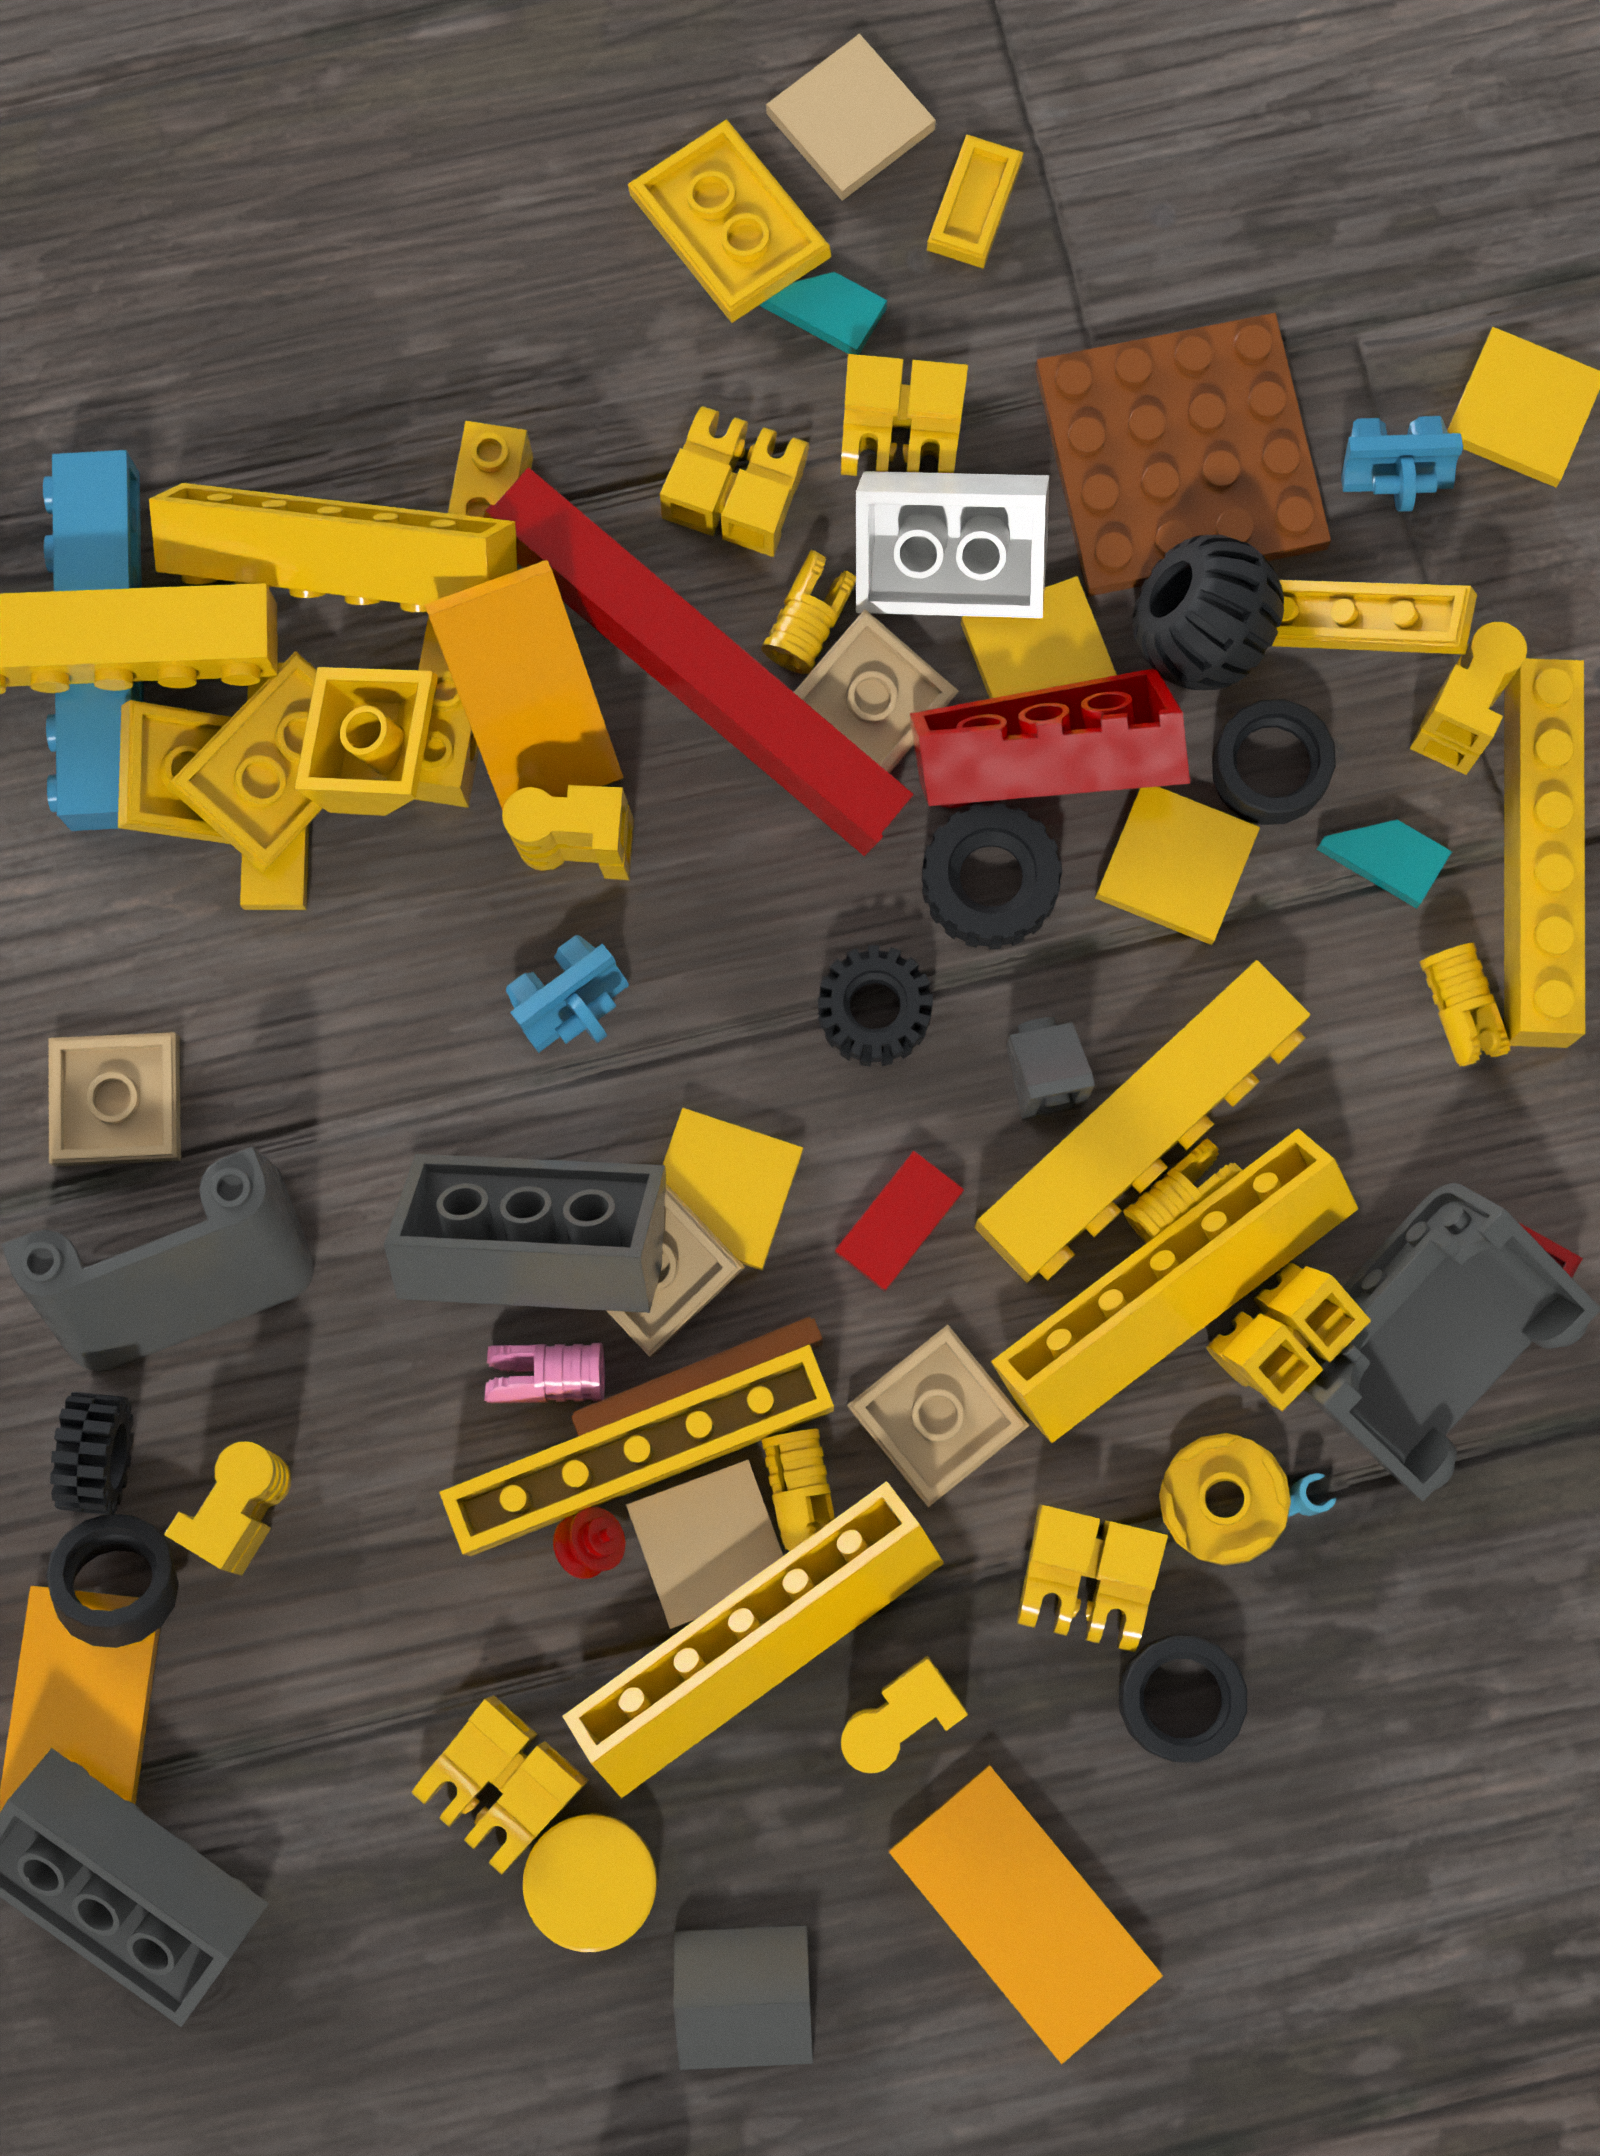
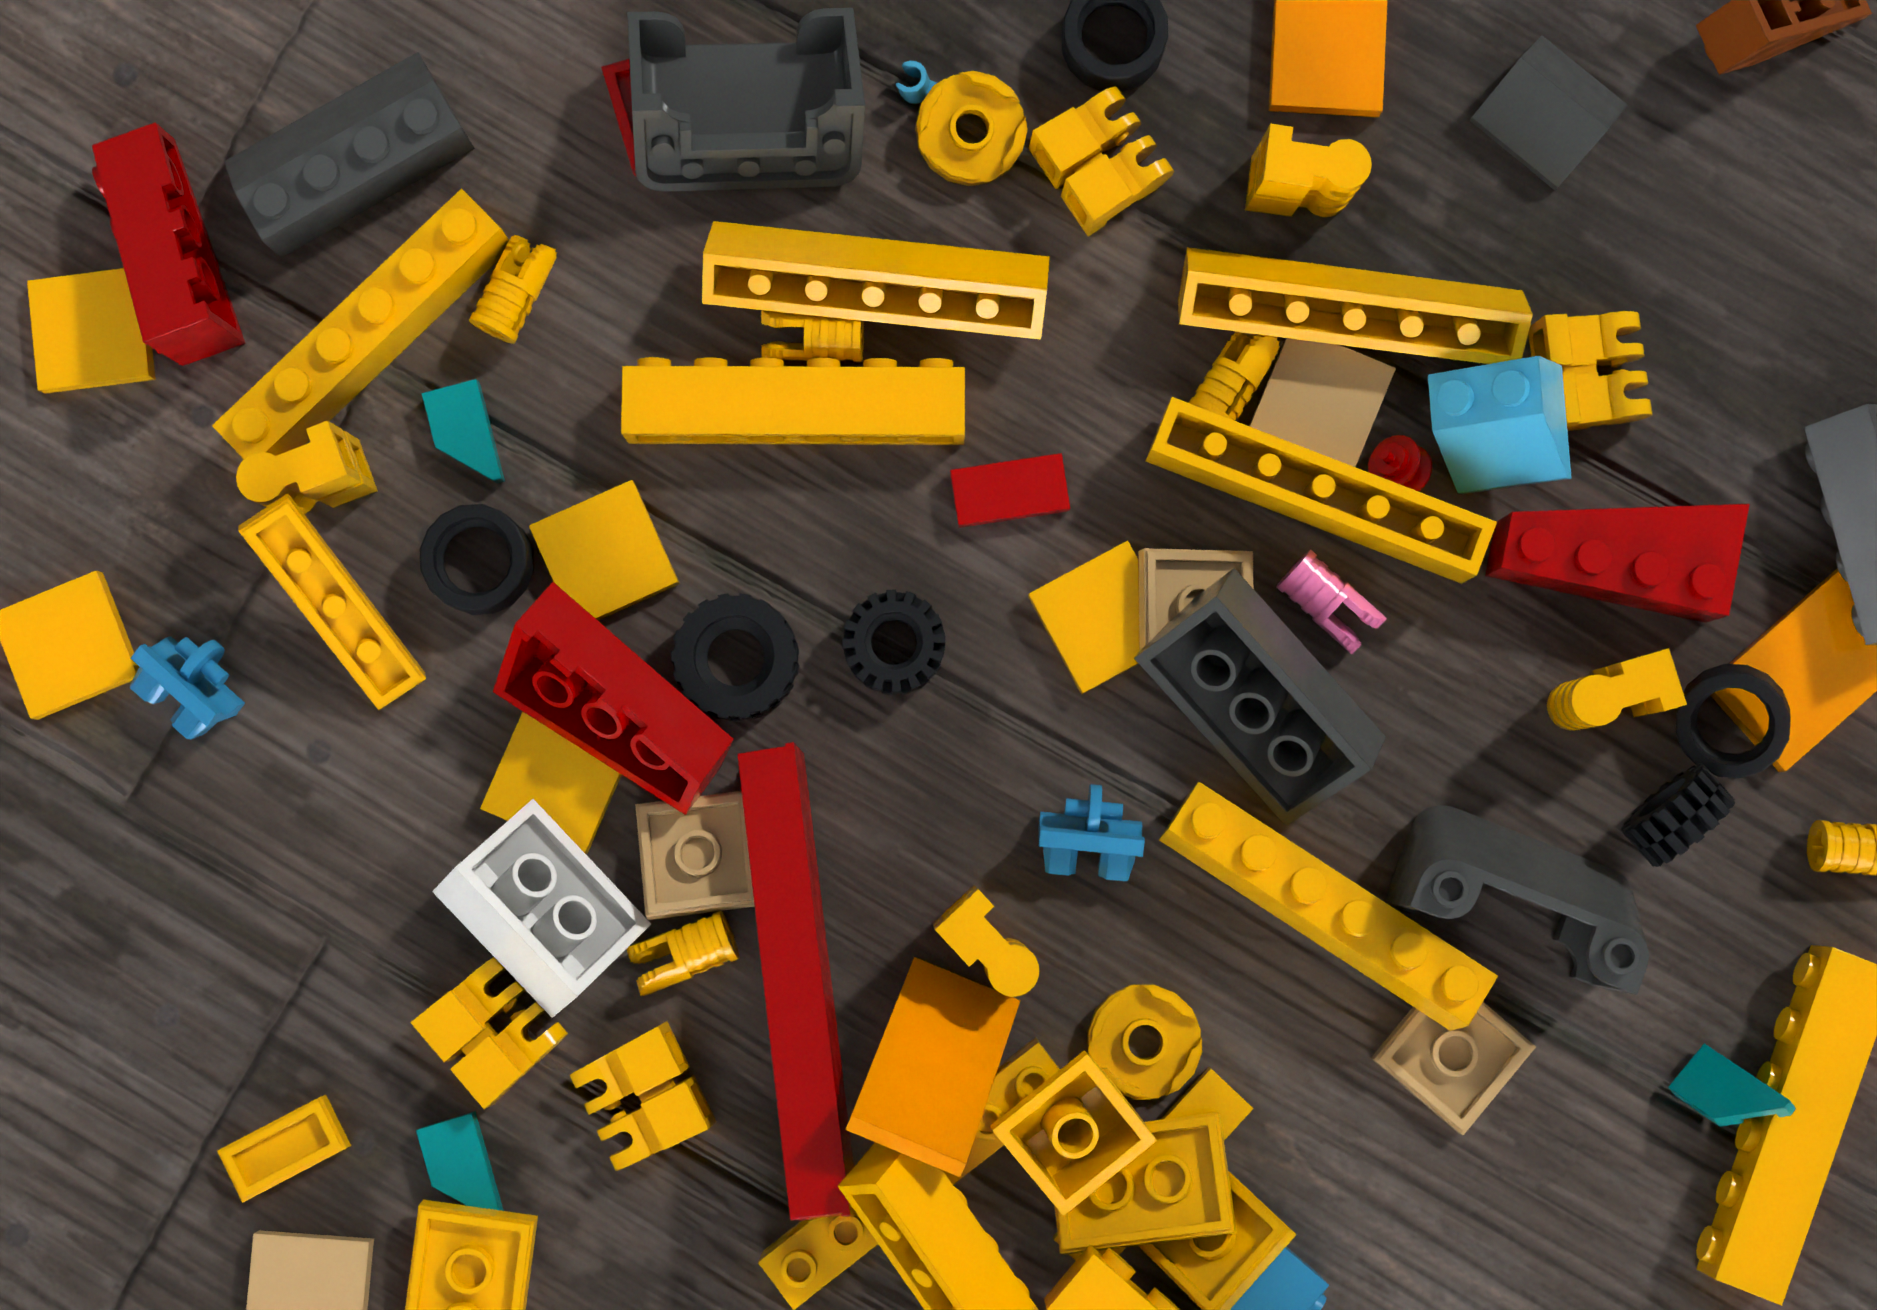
camera: 140 degrees left, 5 degrees up
(312, 1654) = (1638, 557): none -> red wedge
(320, 1110) = (1328, 908): none -> yellow brick
(381, 916) = (1179, 1039): none -> yellow tile
(534, 1653) = (1501, 424): none -> medium azure slope
(590, 1883) = (1585, 260): yellow tile -> none
(698, 1375) = (1236, 506): dark orange tile -> none
(937, 1416) = (1101, 346): tan tile -> none
(1048, 1068) = (822, 491): dark grey slope -> none
(1179, 445) = (324, 830): dark orange plate -> none
(1208, 612) = (421, 693): black wheel -> none
(1271, 1348) = (814, 177): yellow legs -> none

